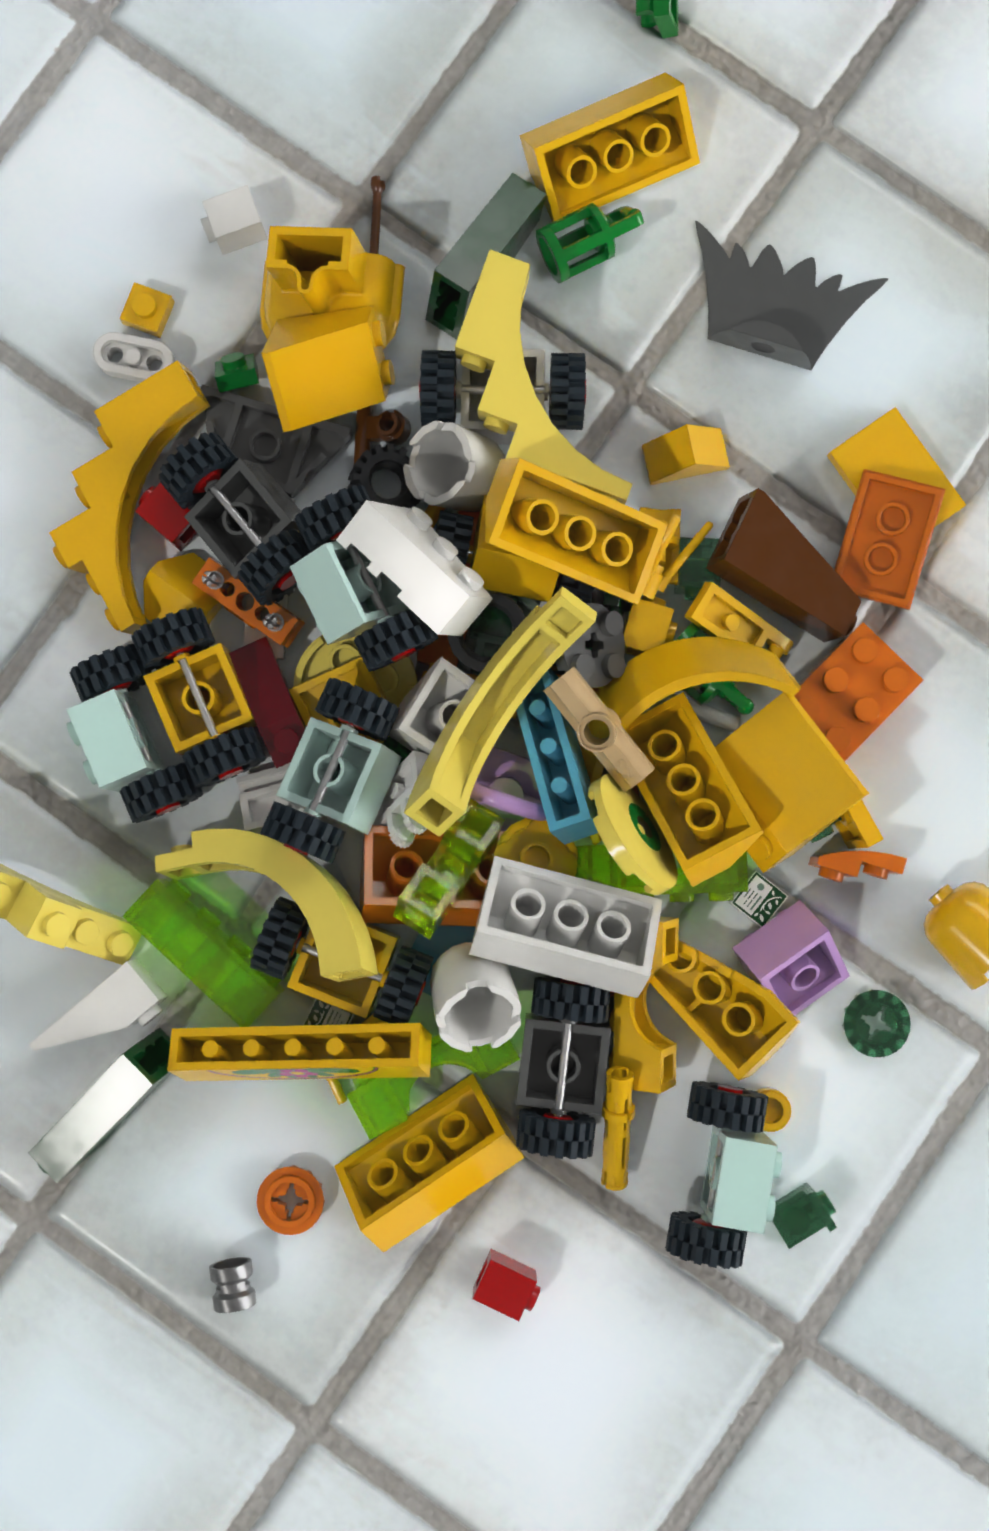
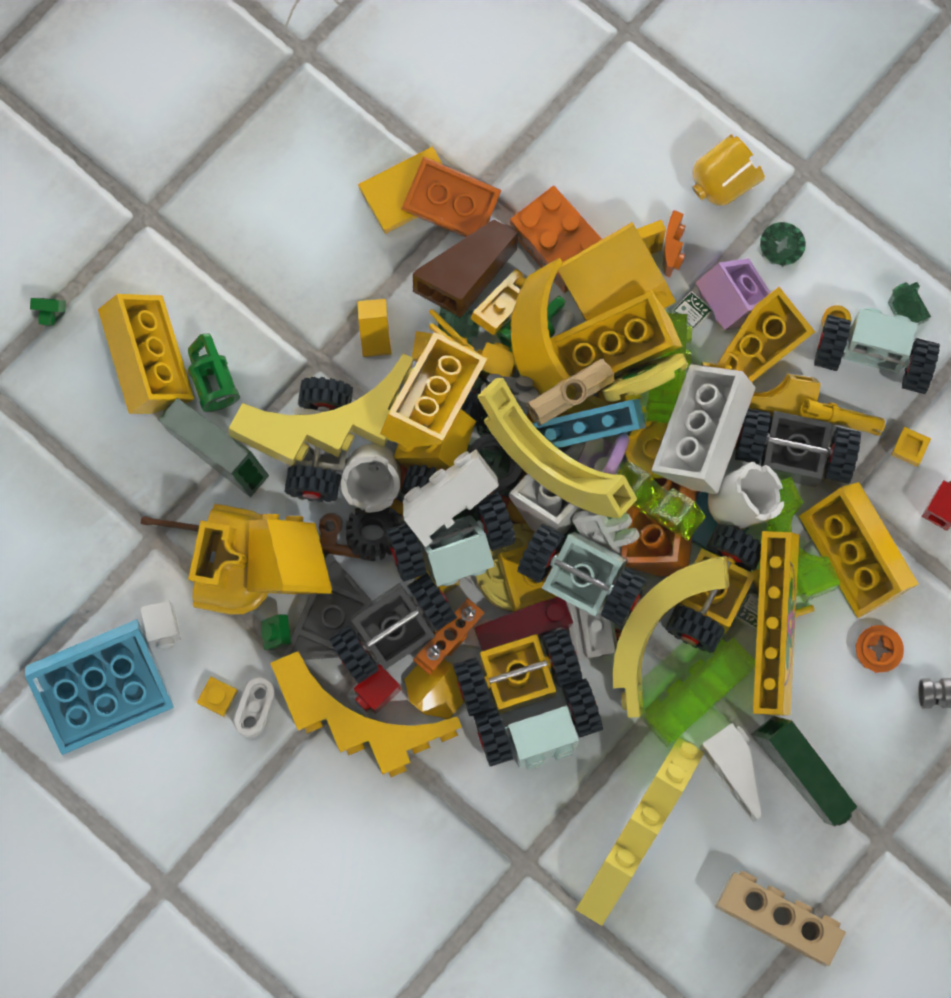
camera: 85 degrees left, 10 degrees down
(143, 150) = (98, 687): none -> medium azure slope
(588, 1229) = (911, 446): none -> yellow plate
(773, 311) = (276, 257): dark grey piece -> none

